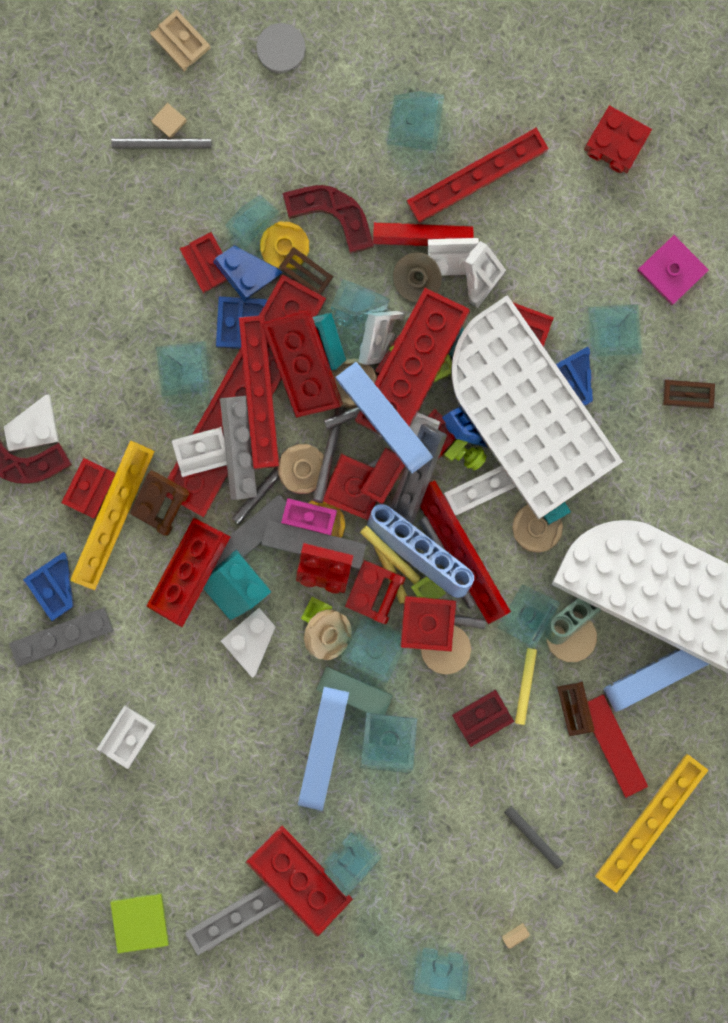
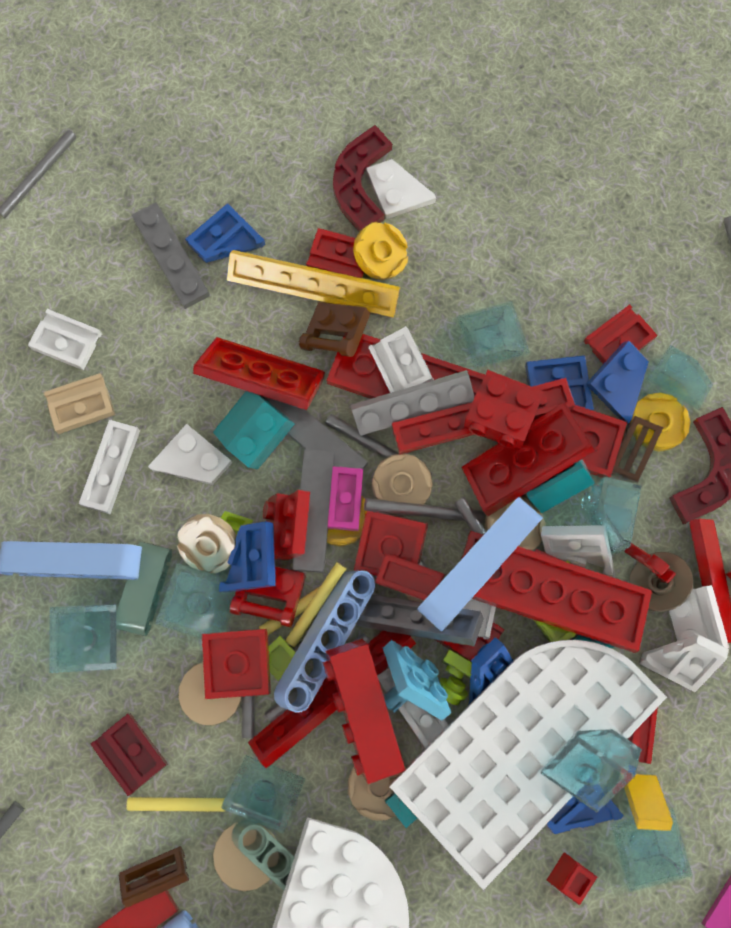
camera: 80 degrees right, 10 degrees down
(92, 451) = (380, 251): none -> yellow tile
(187, 730) = (79, 403): none -> tan plate
(247, 709) = (109, 467): none -> white plate
(259, 374) = (503, 410): none -> red plate
(348, 599) = (251, 559): none -> blue wing
(401, 282) = (654, 563): none -> red bar
(465, 485) = (414, 682): none -> medium azure plate
(480, 528) = (364, 710): none -> red brick
(548, 362) = (594, 766): none -> clear light blue slope
(580, 327) = (648, 803): none -> yellow tile
(626, 394) = (571, 878): none -> red slope

